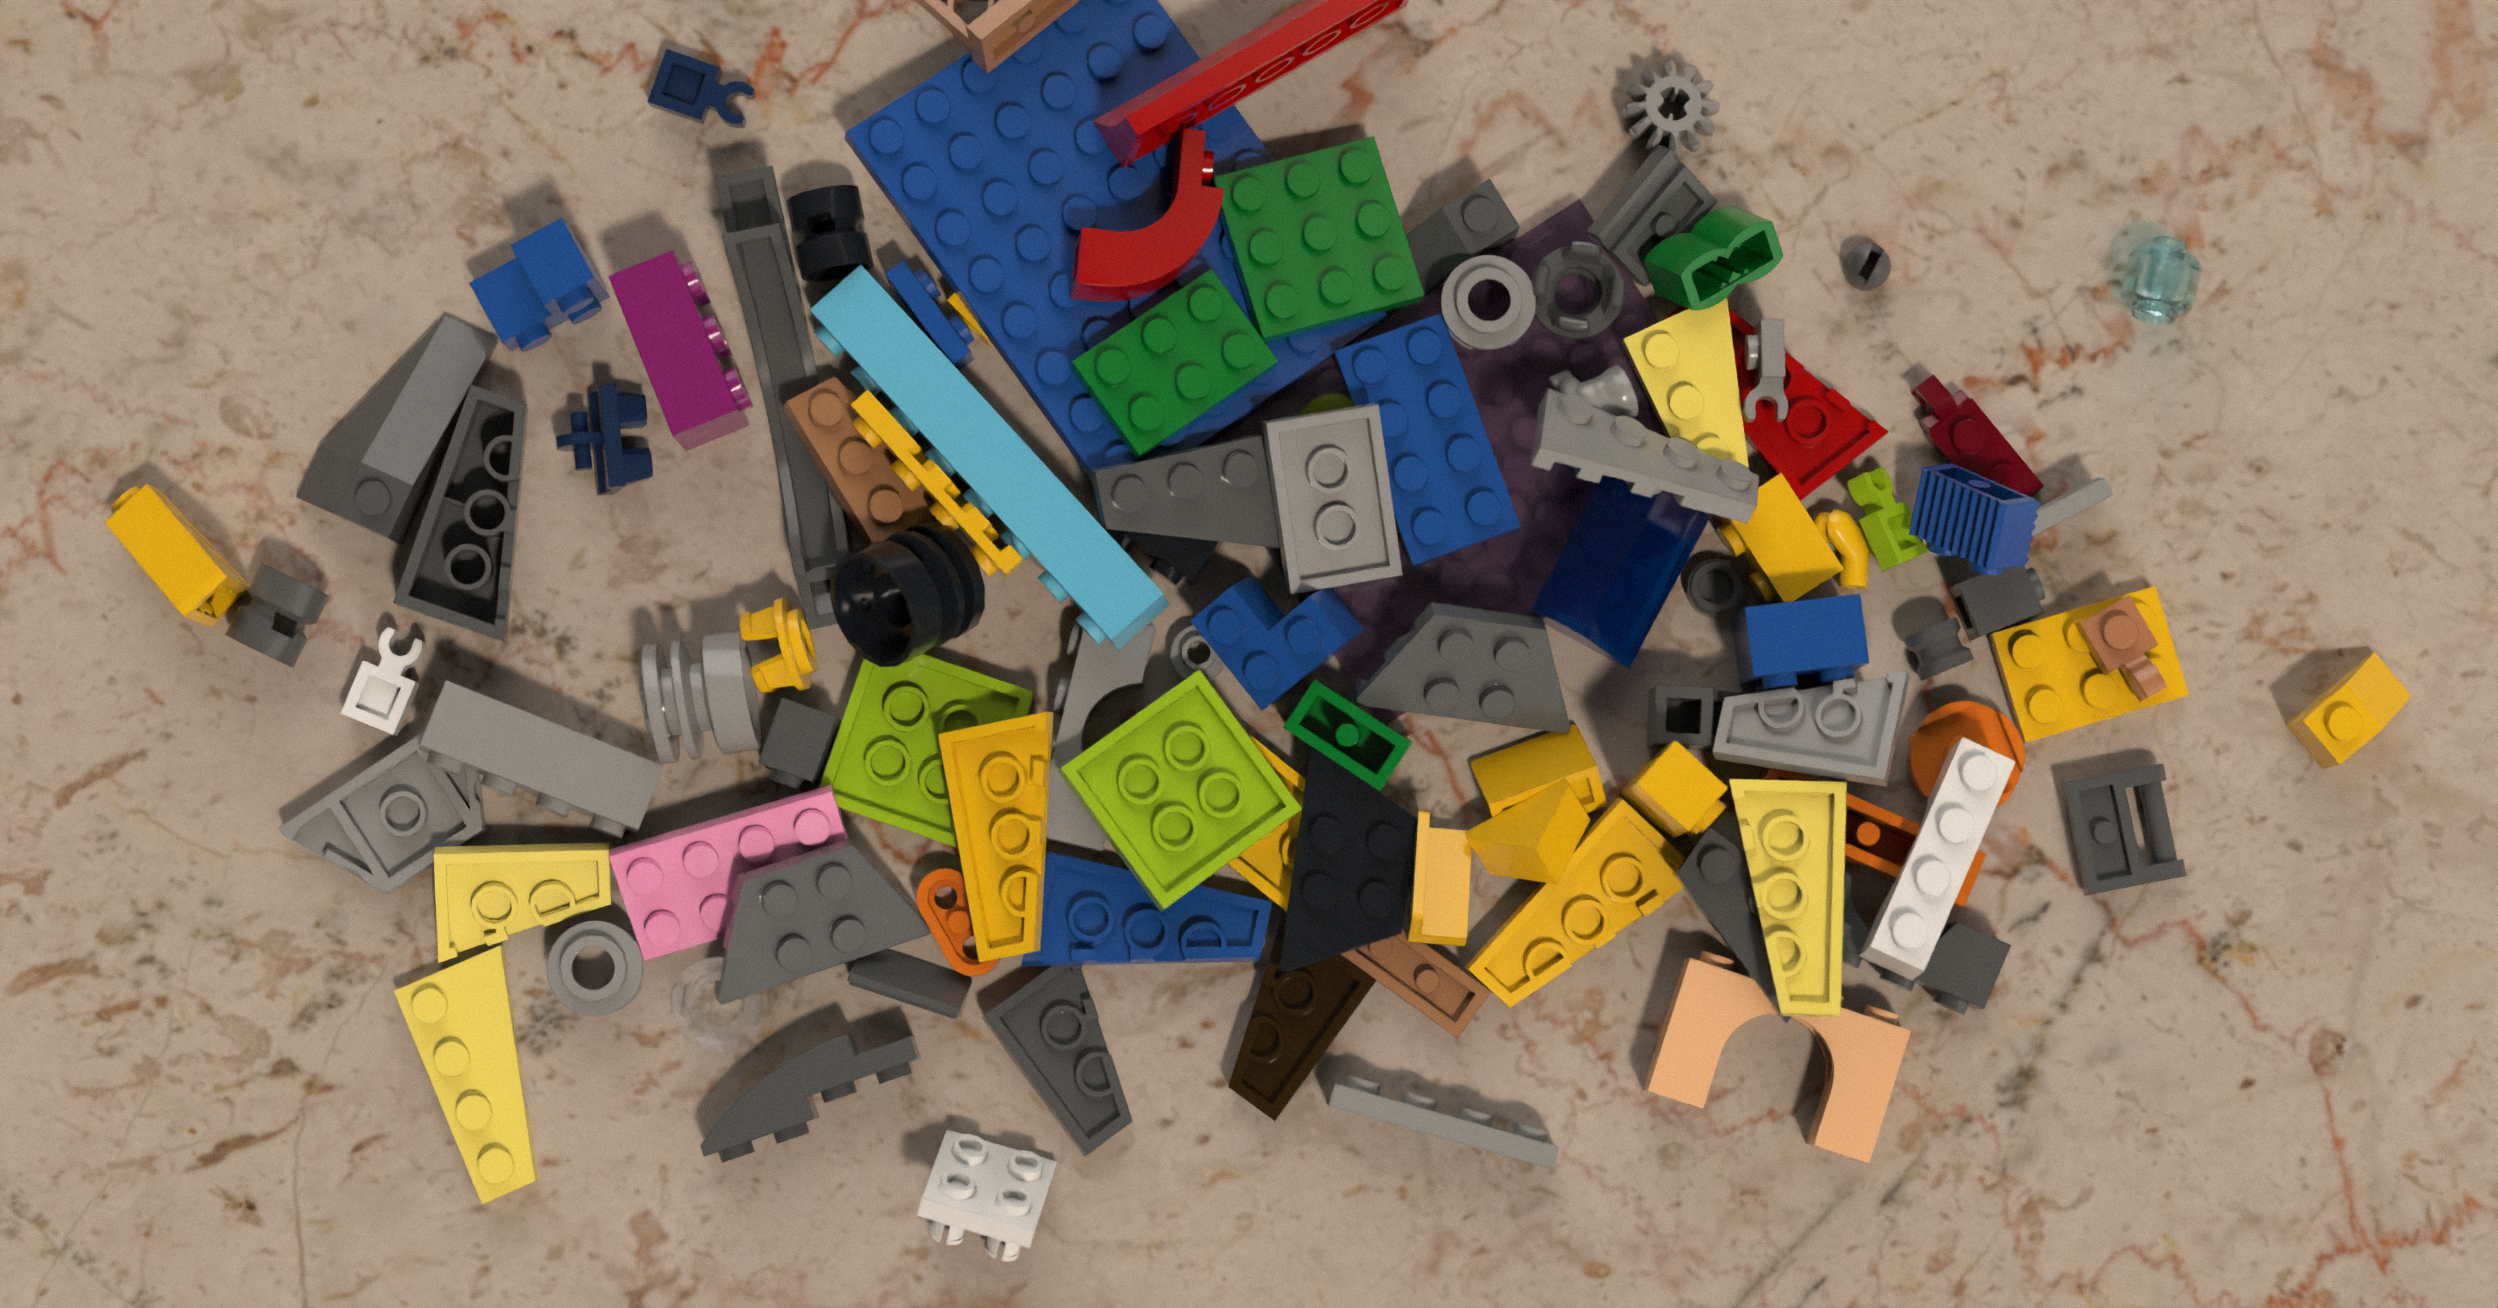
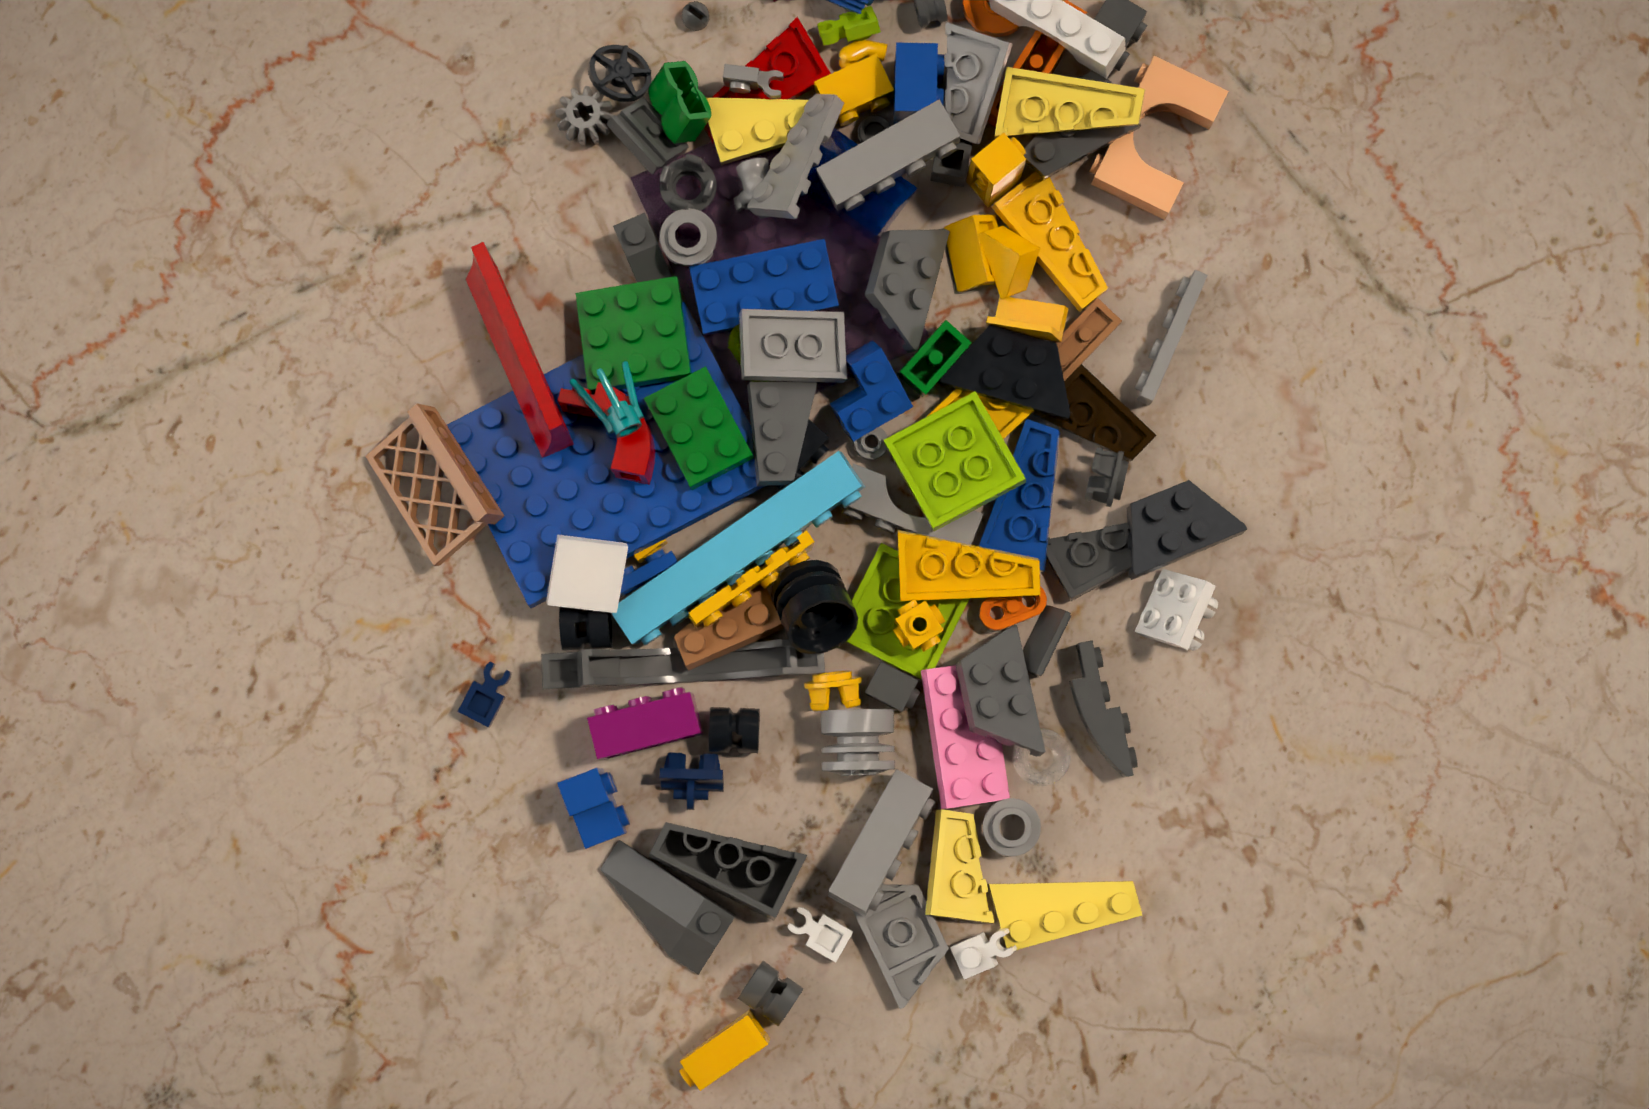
camera: 75 degrees left, 0 degrees up
(383, 946) = (978, 953): none -> white plate
(694, 496) = (734, 730): none -> black wheel
(907, 217) = (587, 574): none -> white tile
(916, 785) = (908, 635): none -> yellow brick
(1126, 1173) = (1175, 527): none -> black wing
(1165, 233) = (622, 418): none -> teal plant
(1192, 1047) = (1112, 478): none -> dark grey piece
(1662, 605) = (888, 156): none -> light grey brick
(1750, 155) = (619, 73): none -> black wheel

